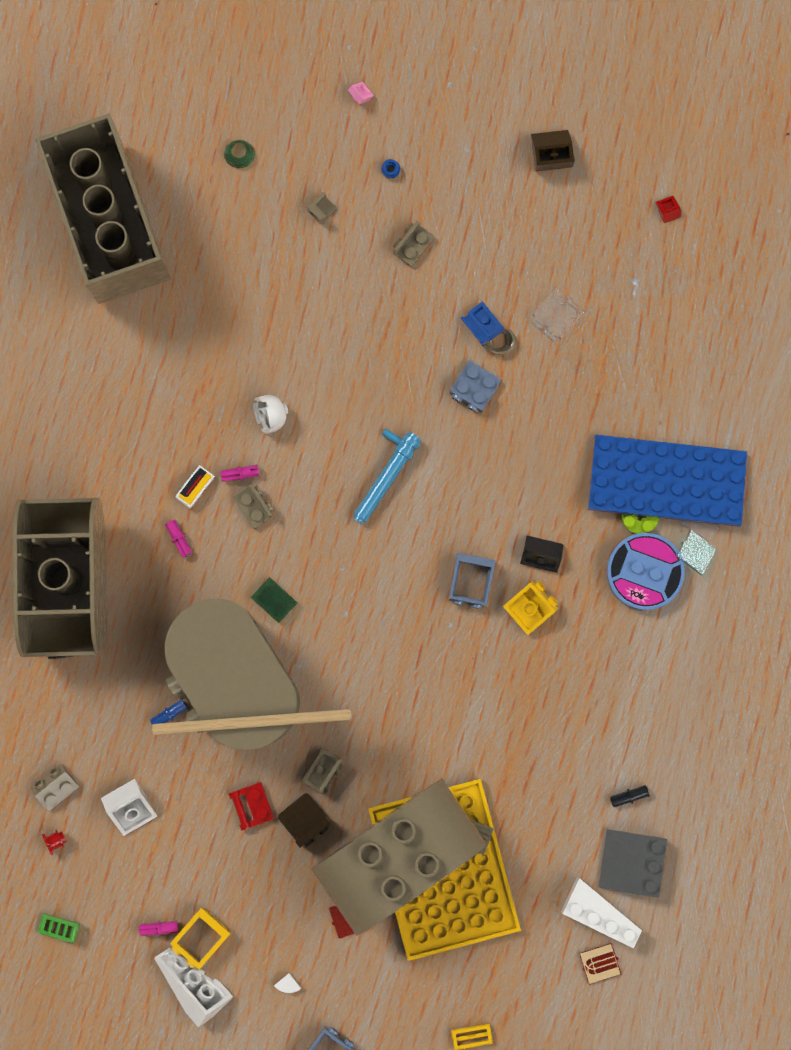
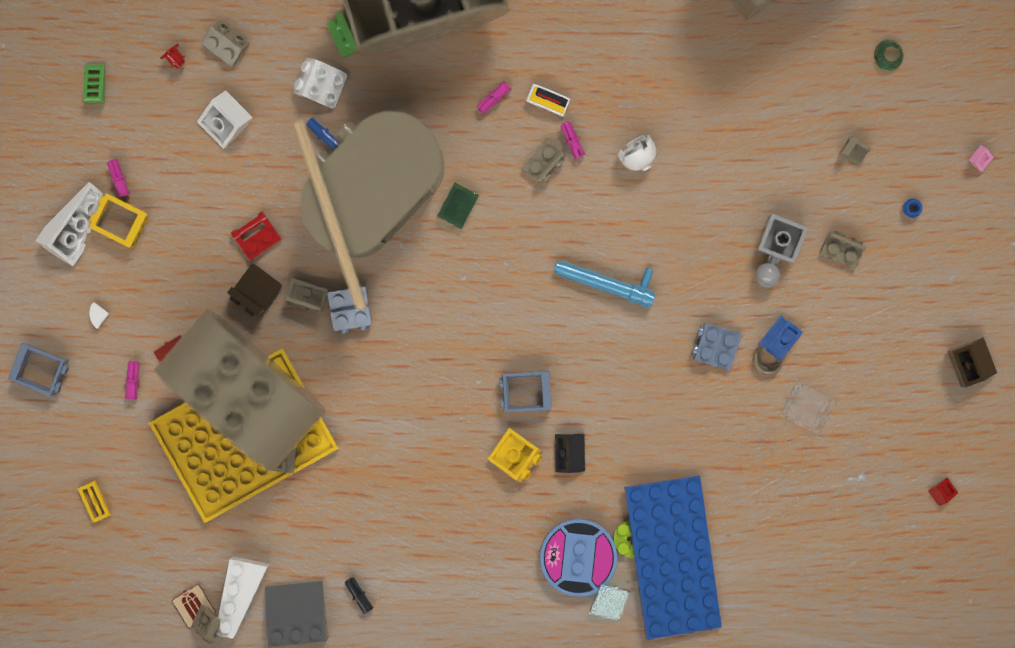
camera: 75 degrees right, 5 degrees up
(79, 669) = (342, 35): none -> bright green bracket
(118, 703) = (320, 82): none -> white bracket
(348, 734) = (344, 313): none -> sand blue plate
(361, 966) = (132, 380): none -> dark pink axle
(387, 285) = (794, 234): none -> light grey brick
(621, 953) = (207, 624): none -> dark tan bracket

